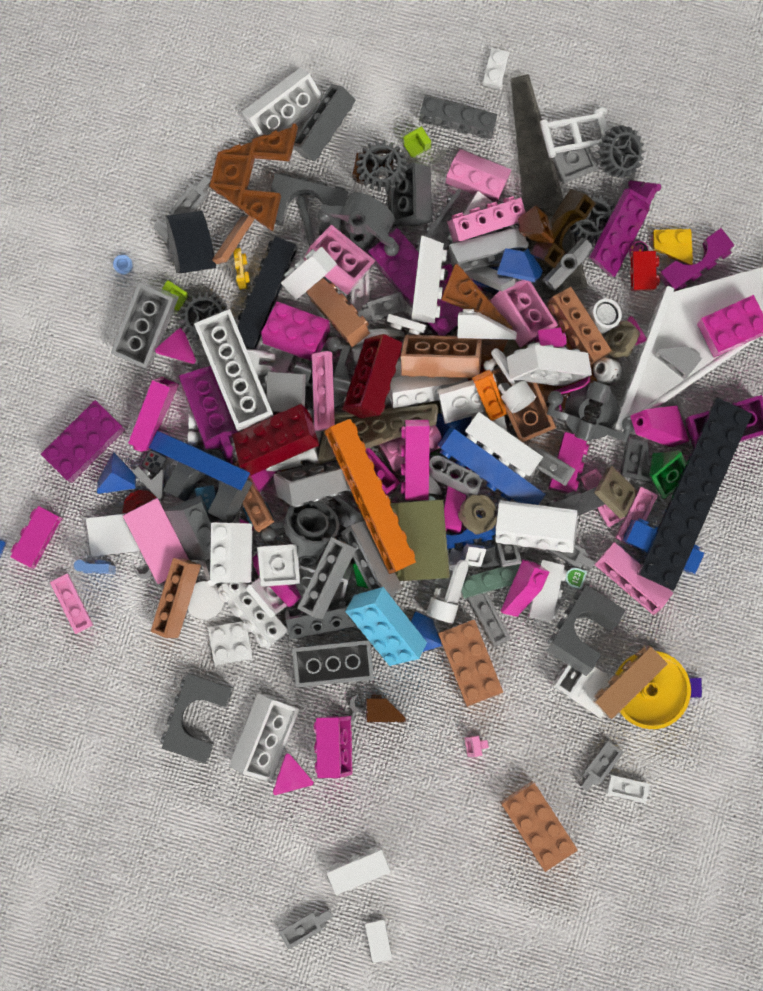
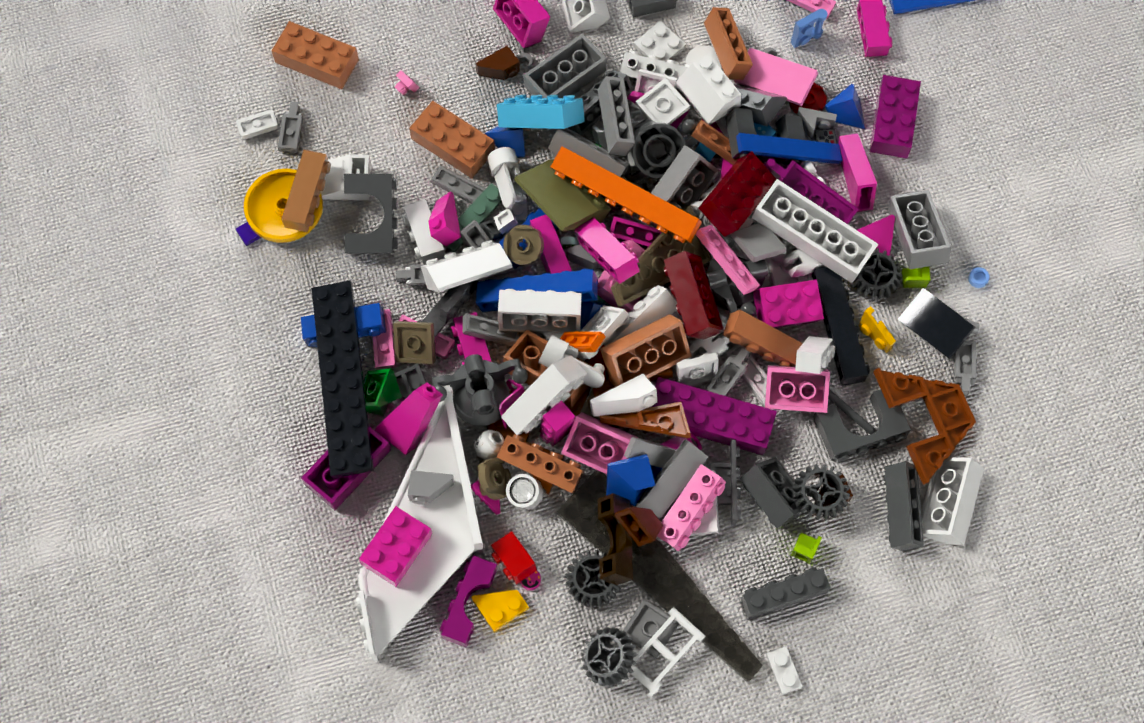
camera: 145 degrees right, 15 degrees down
(109, 535) = (821, 59): white tile -> none
(233, 239) = (901, 346): nougat tile -> none
(365, 219) = (800, 433): dark grey piece -> none
(427, 280) = (704, 406): white slope -> none
(448, 468) = (573, 257): light grey beam -> none
(477, 174) = (728, 552): bright pink slope -> none
(575, 577) = (405, 259): tile -> none
(576, 256) = (586, 527): light grey piece -> none
(623, 226) = (560, 587): magenta hinge -> none
(624, 570) = (365, 284): bright pink brick -> none

